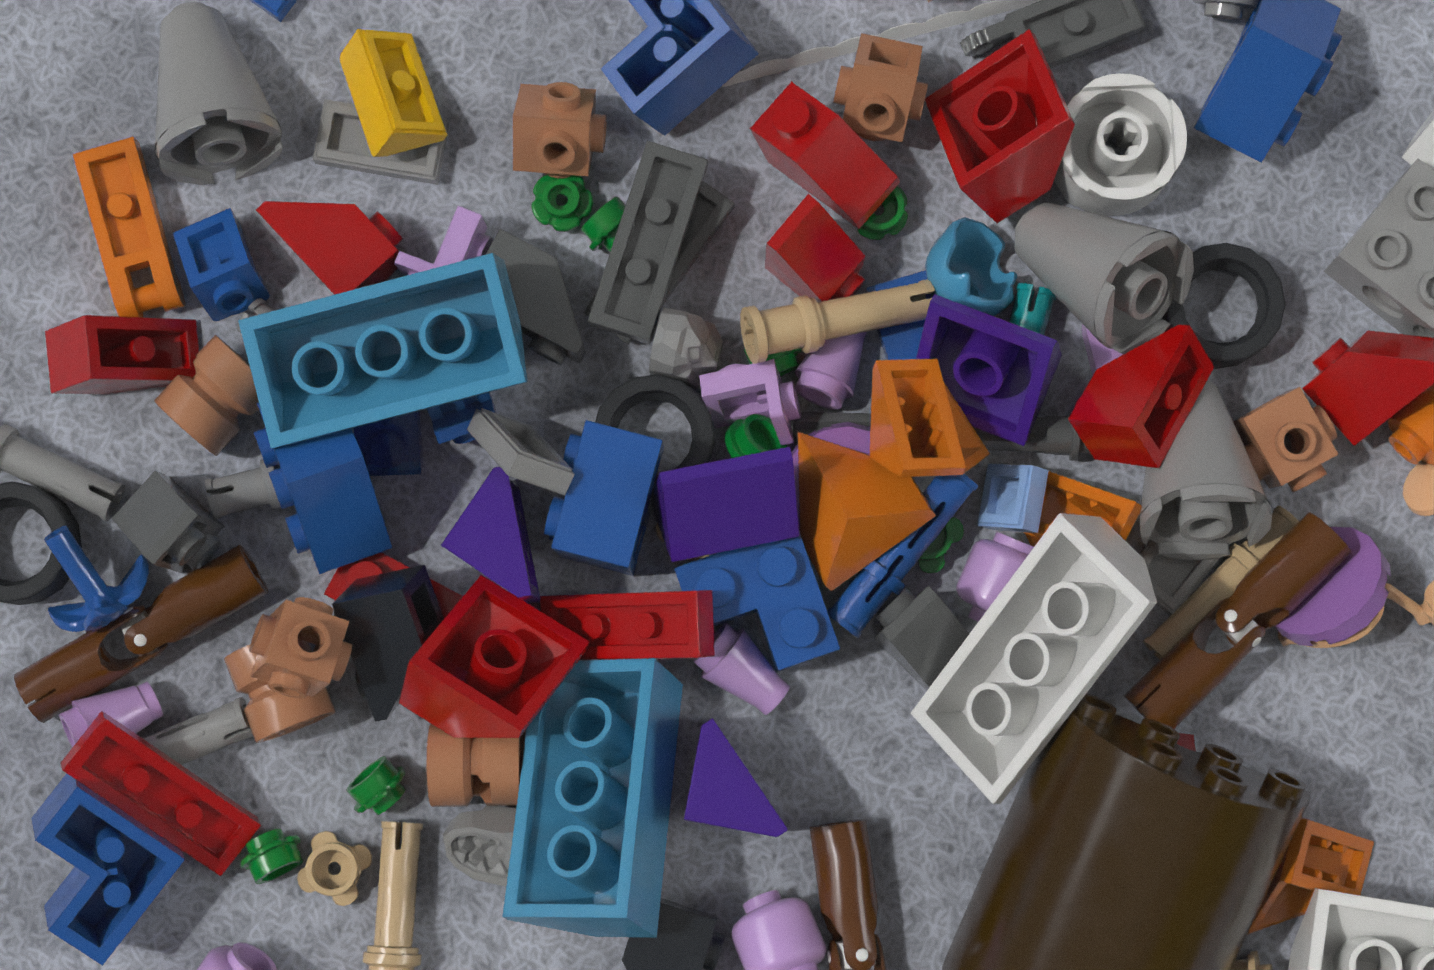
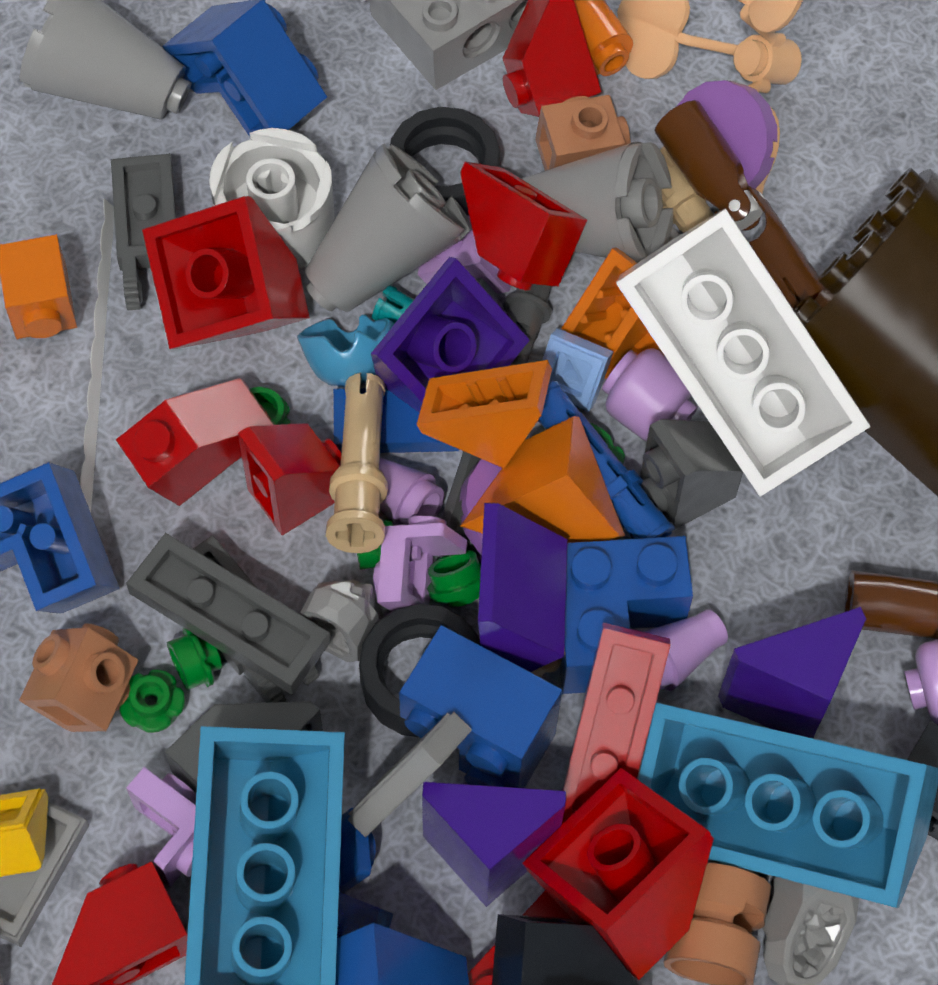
camera: 80 degrees left, 20 degrees down
(881, 88) = (146, 368): nougat brick -> none

